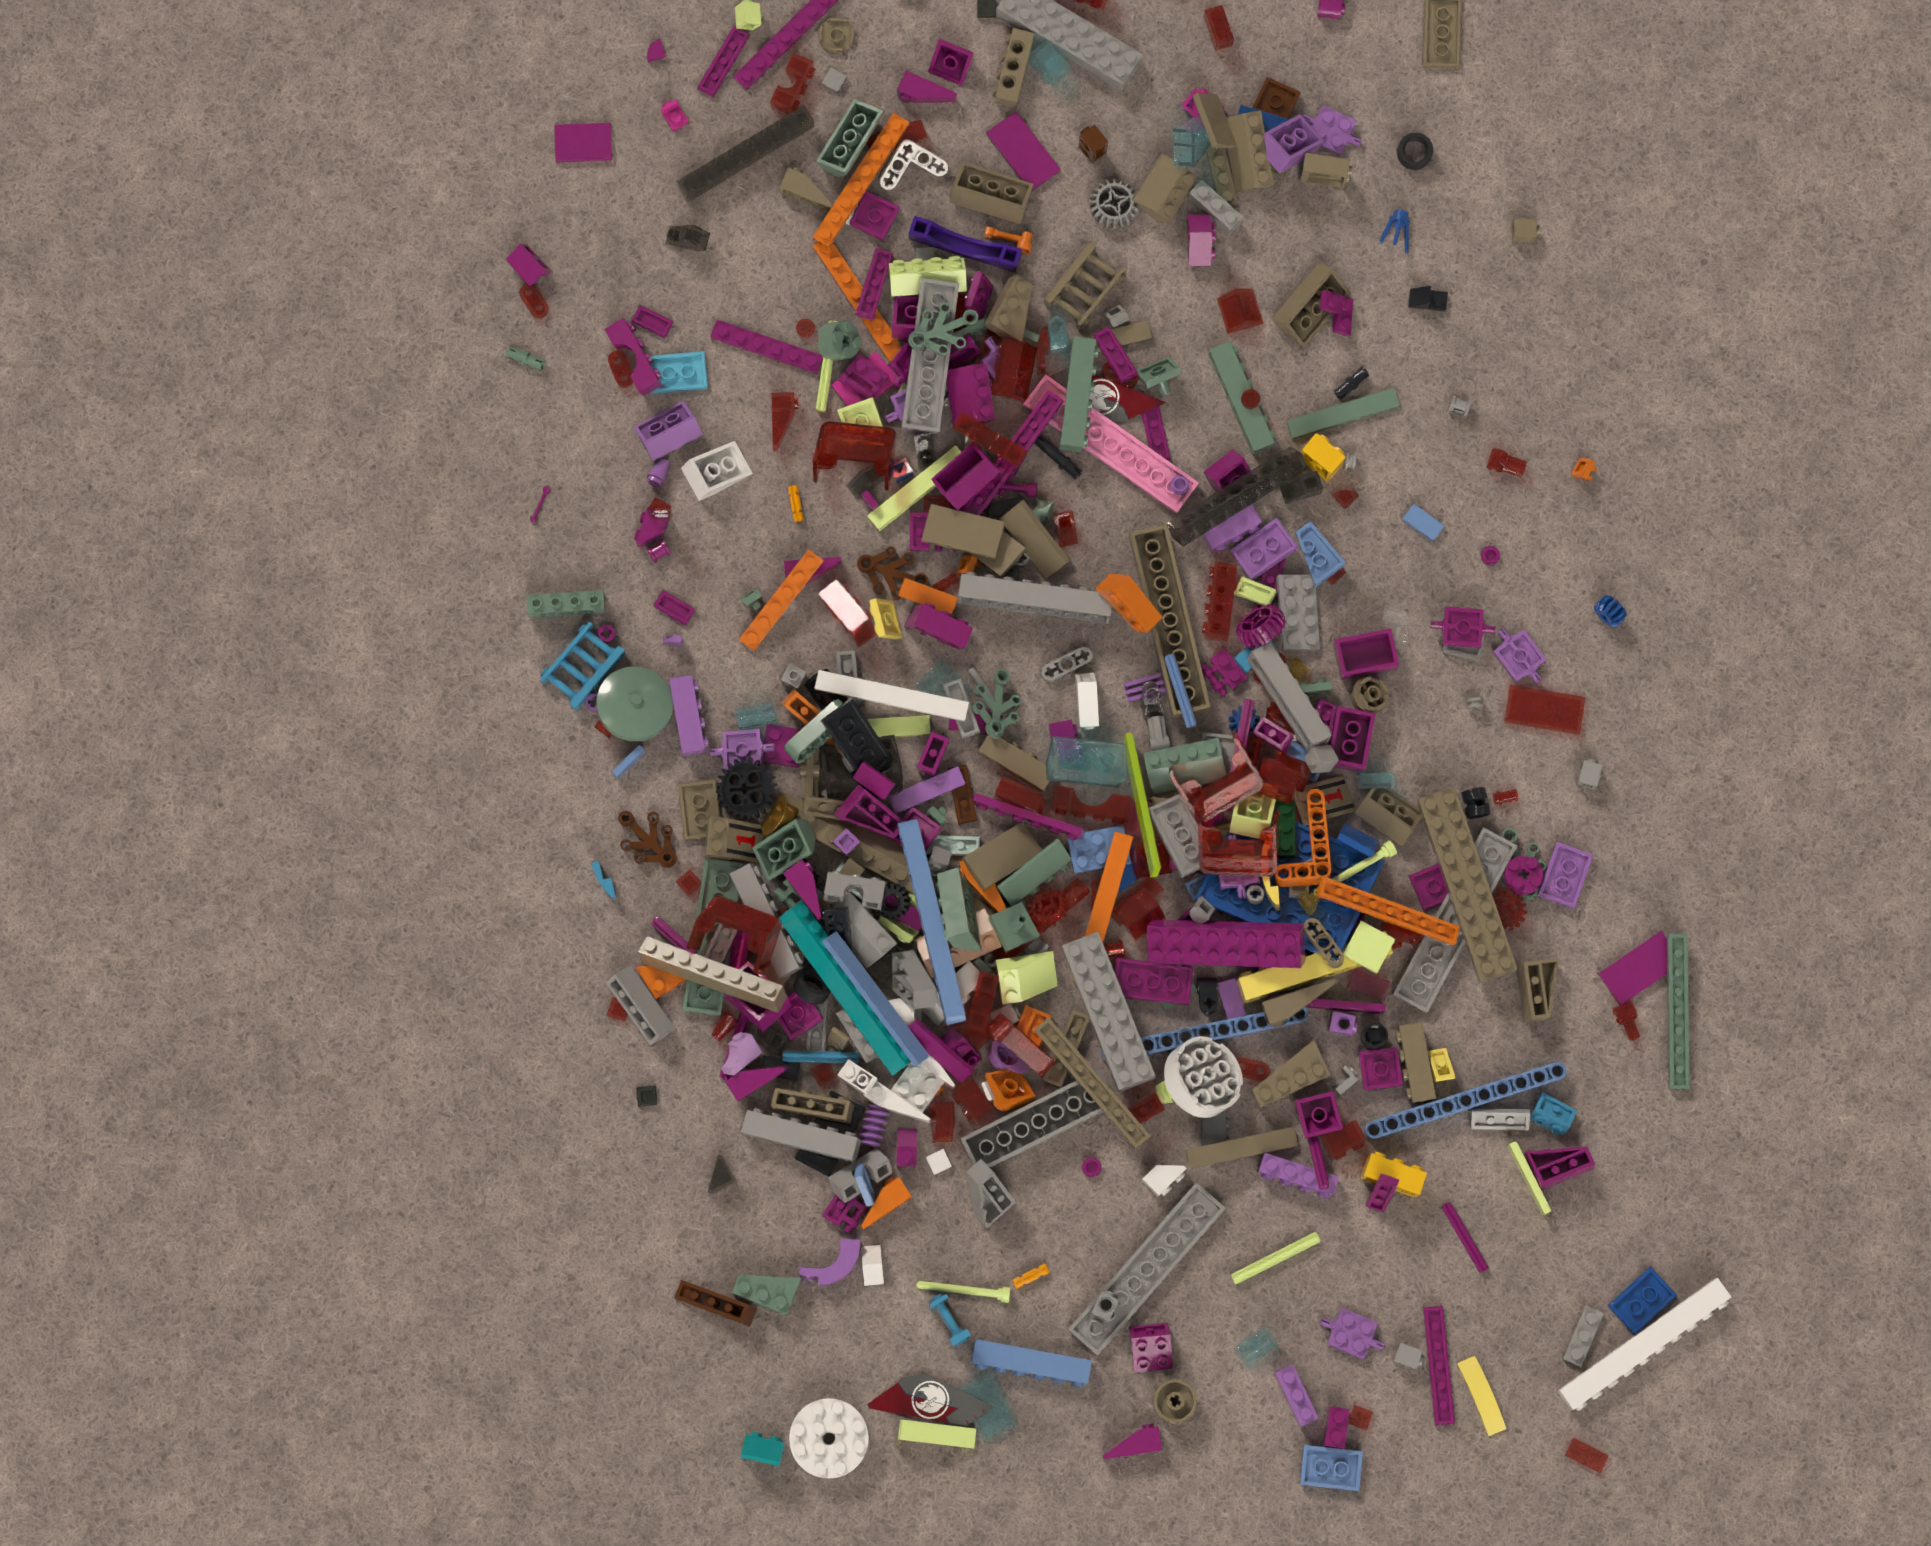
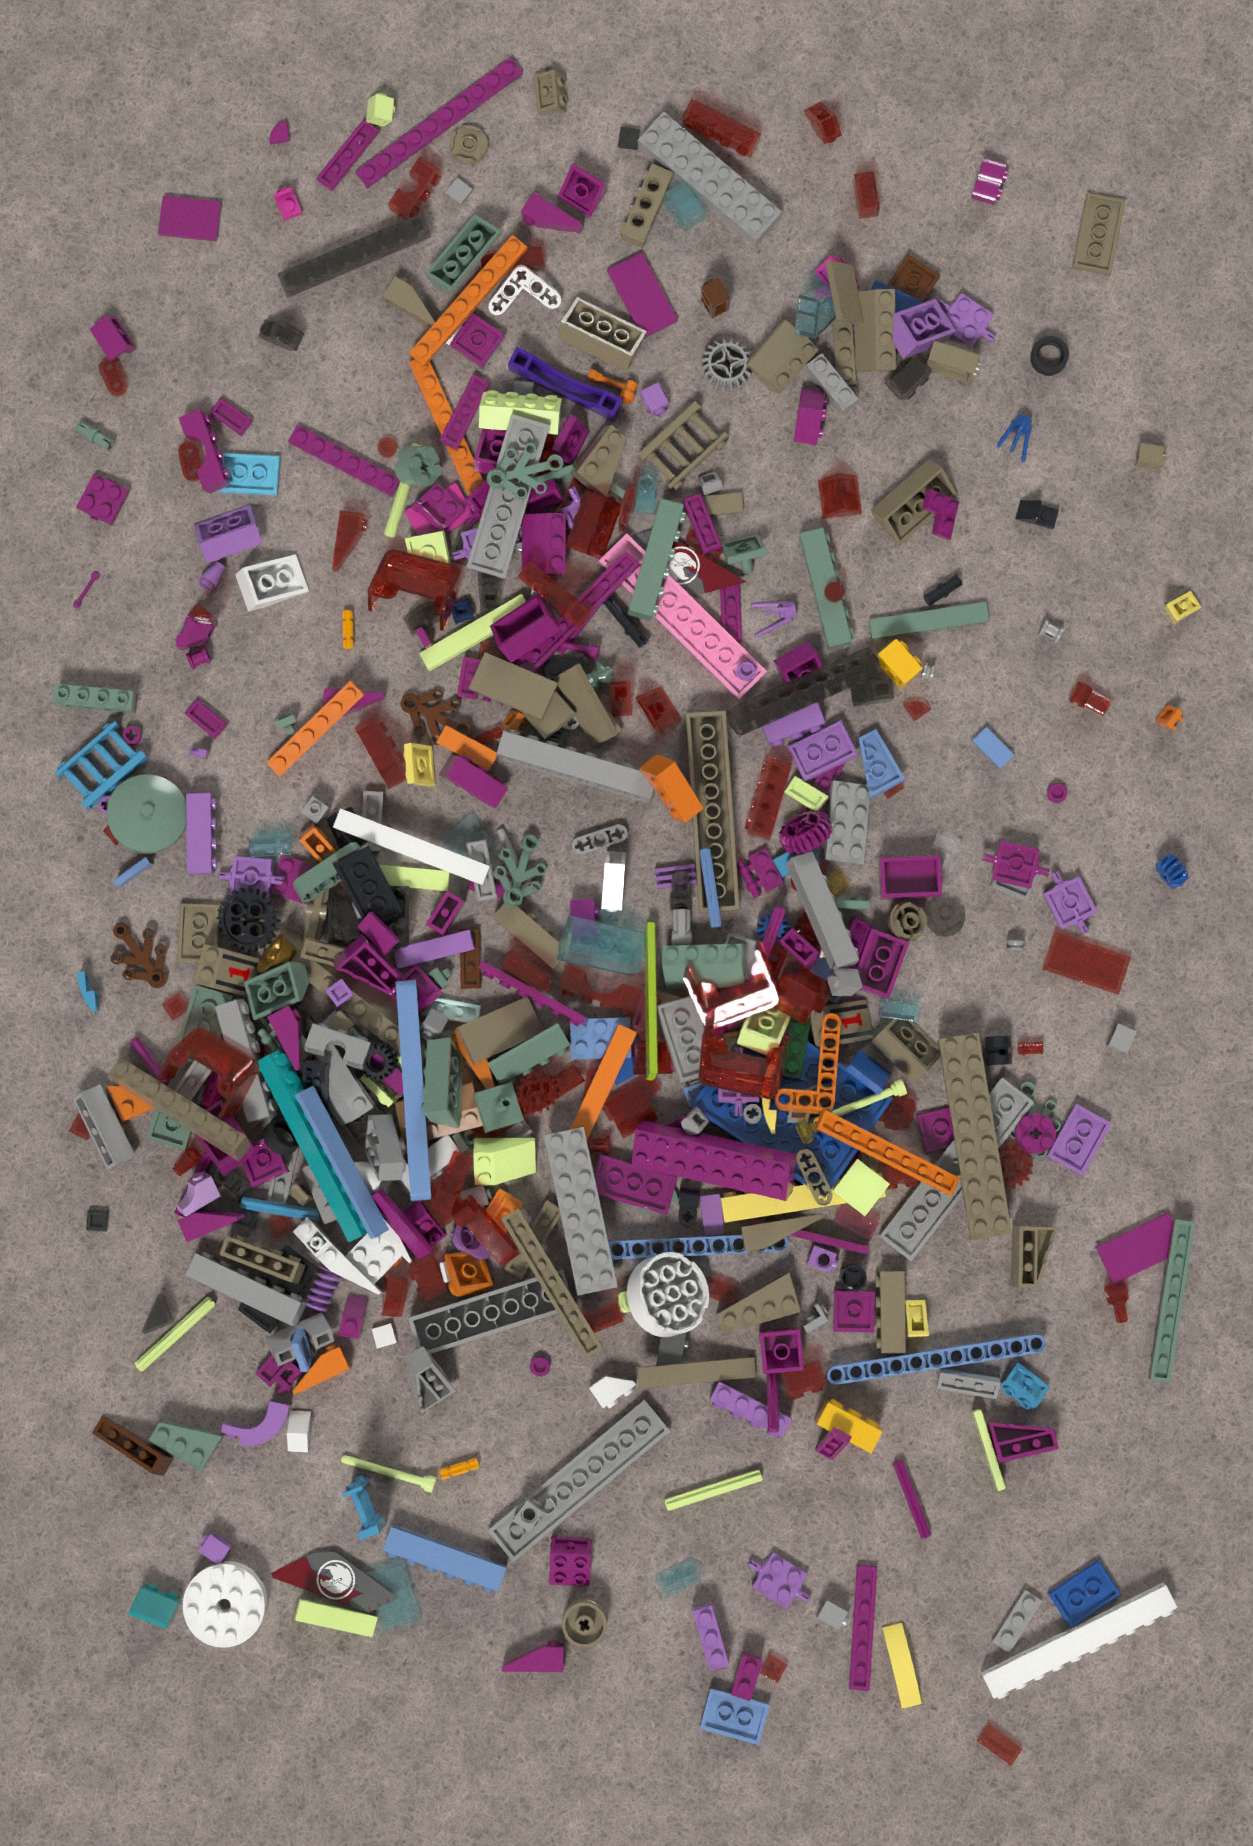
camera: 15 degrees right, 5 degrees up
(542, 416) = (102, 499): none -> magenta plate
(738, 1192) = (174, 1334): none -> yellowish green axle
(810, 1387) = (214, 1547): none -> medium lavender brick
(1051, 246) = (654, 400): none -> medium lavender brick
(1101, 534) = (657, 709): none -> clear red slope
(1206, 423) = (784, 609): none -> medium lavender plant
(1286, 190) = (908, 377): none -> clear smoke brick
(1391, 875) = (898, 1113): none -> clear red plant
(1406, 692) = (947, 922): none -> clear smoke tile
(1578, 365) = (1182, 607): none -> light yellow slope

